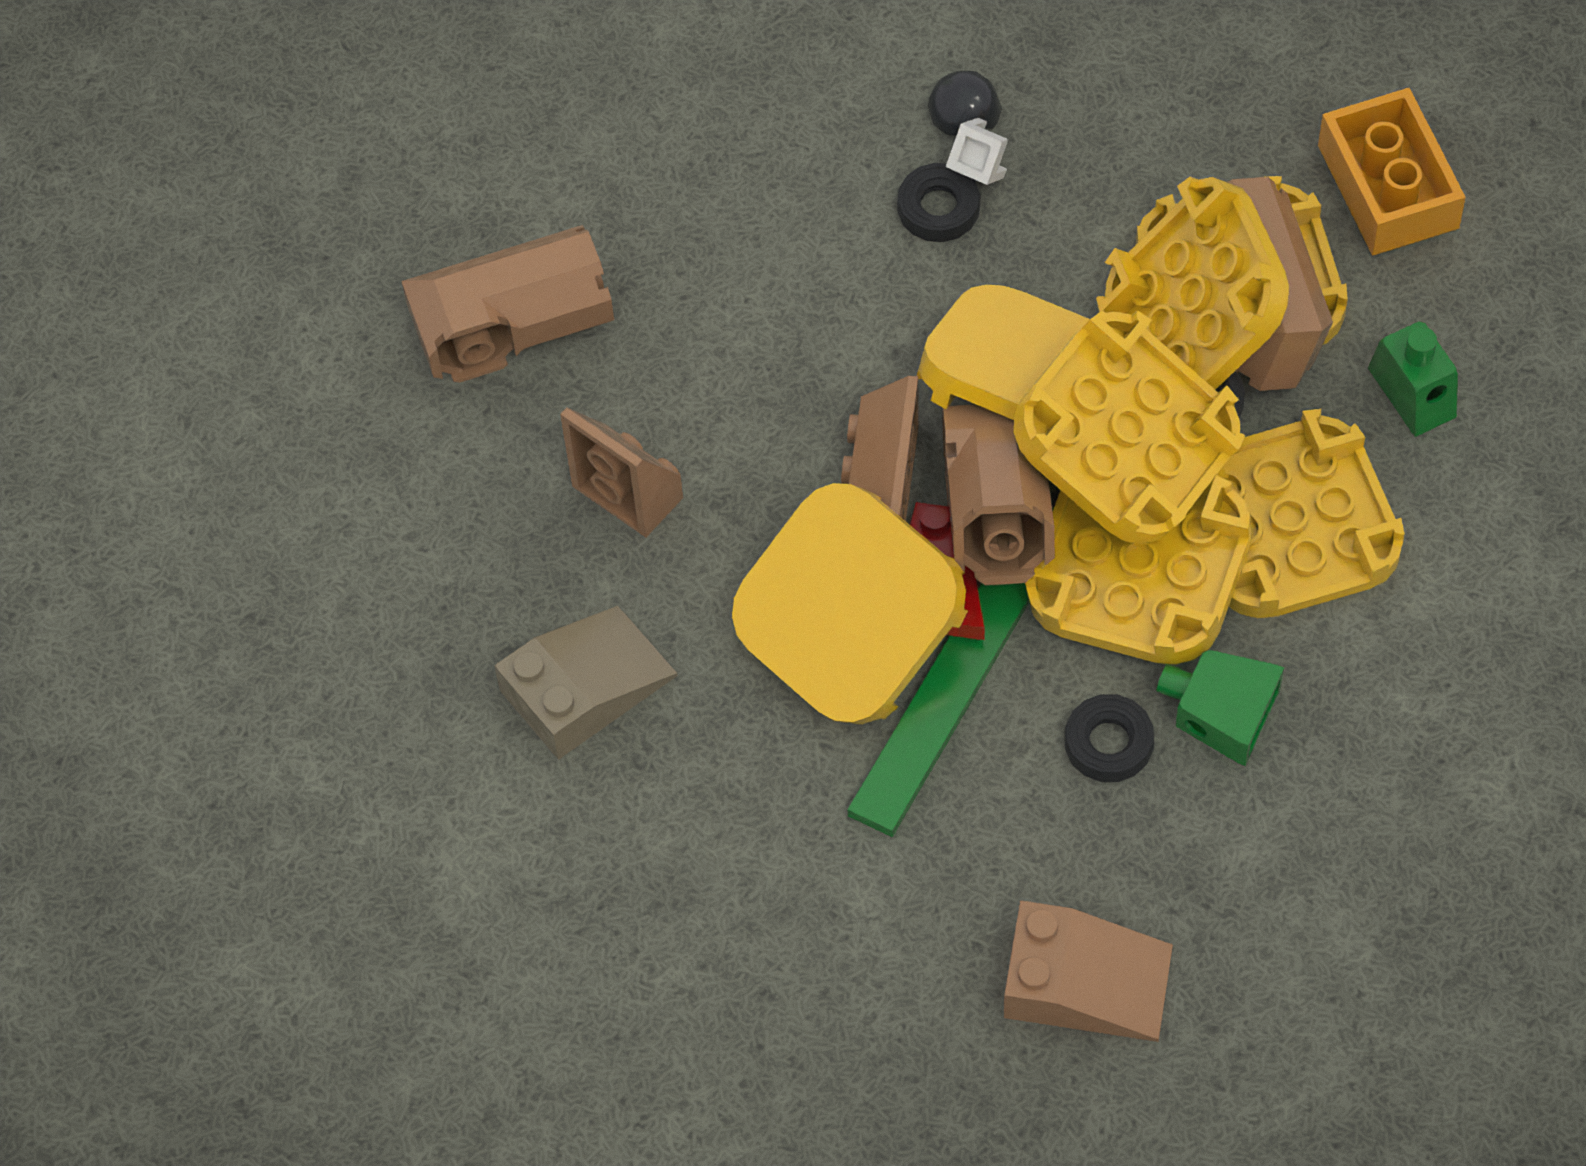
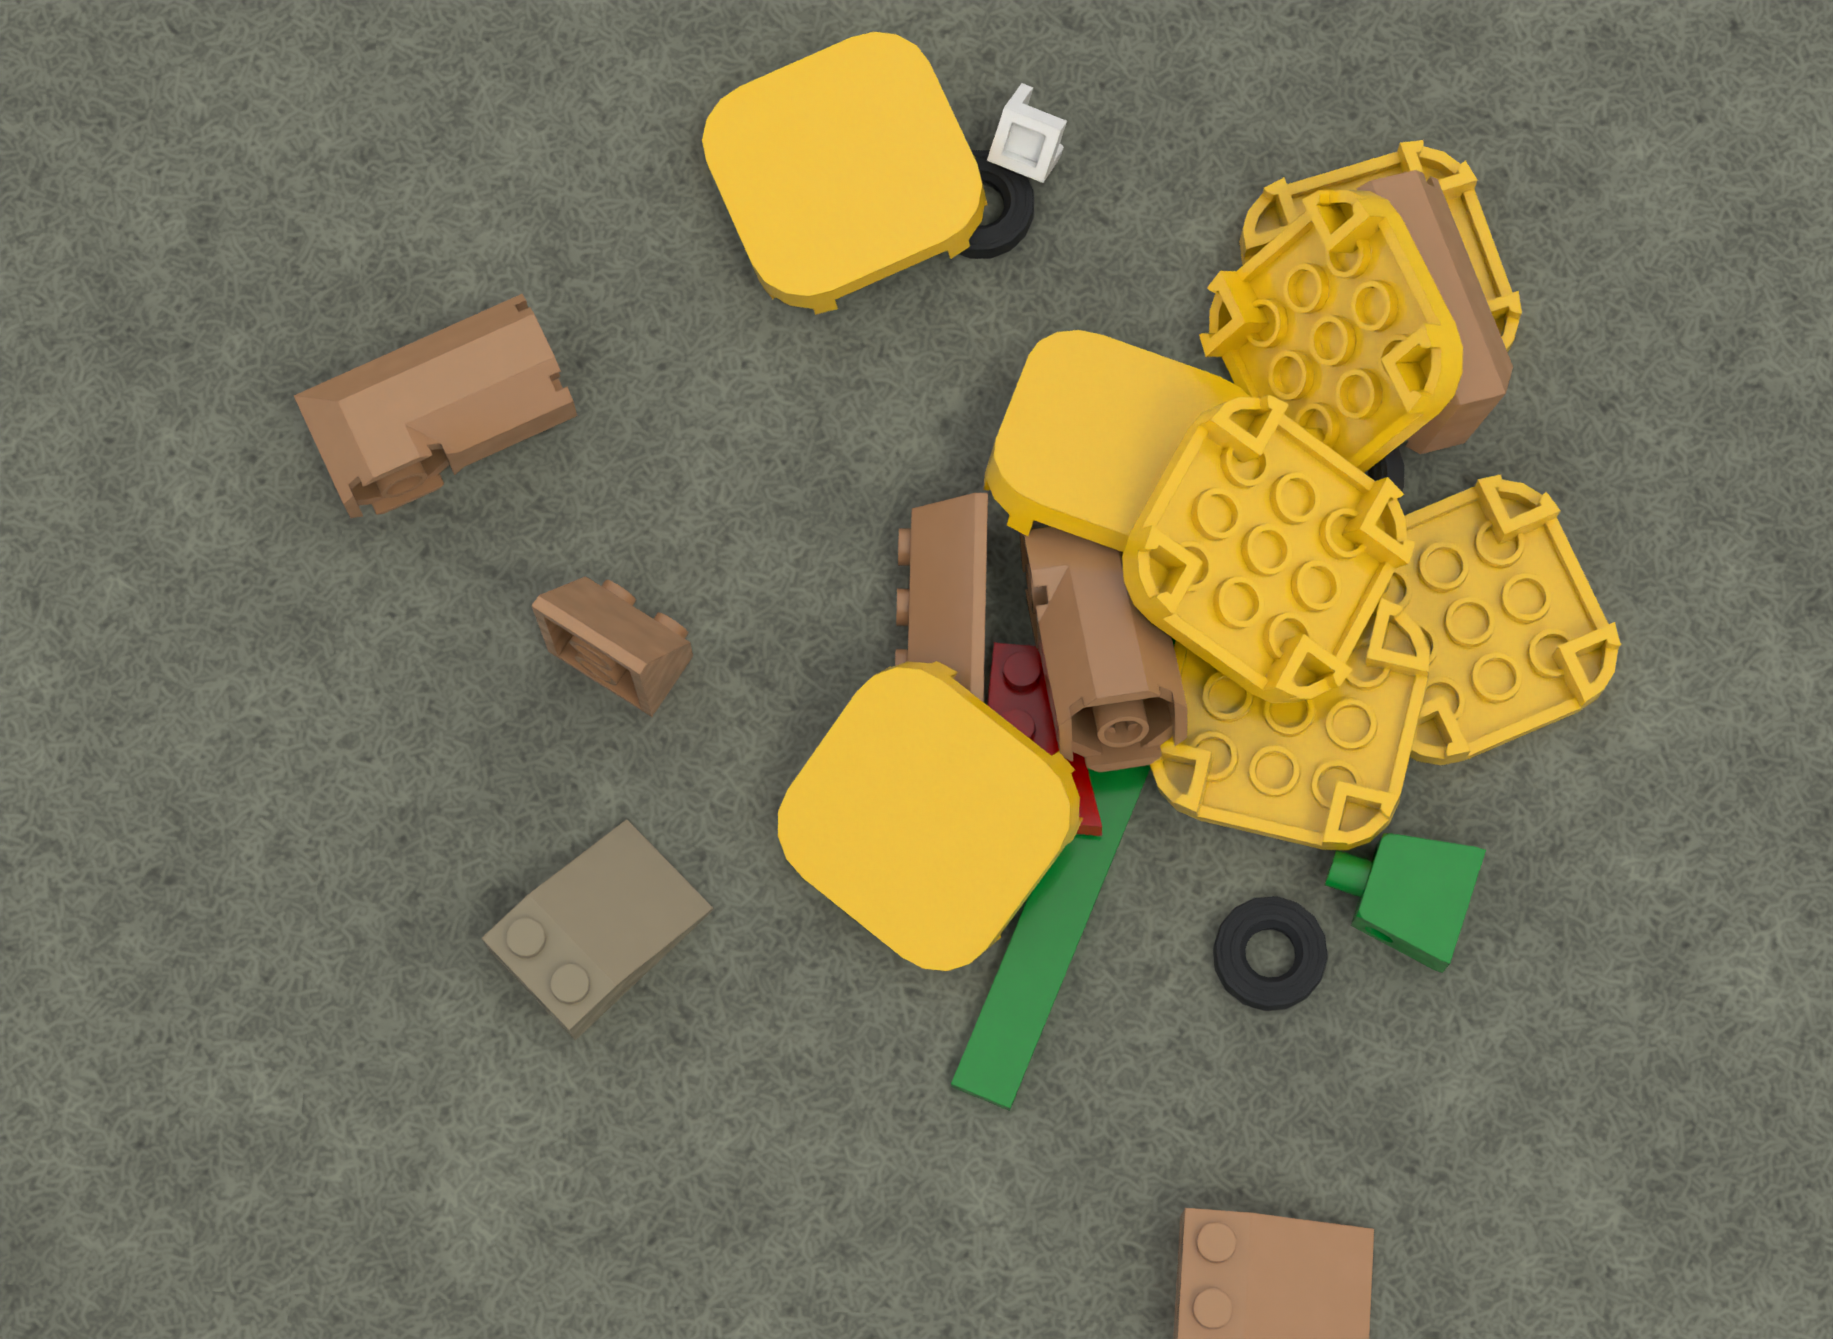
camera: 10 degrees left, 15 degrees up
(836, 166) = (843, 169): none -> yellow tile
(962, 98) = (998, 55): black hair -> none
(1391, 171) = (1563, 121): light orange brick -> none
(1413, 368) = (1616, 417): green torso -> none

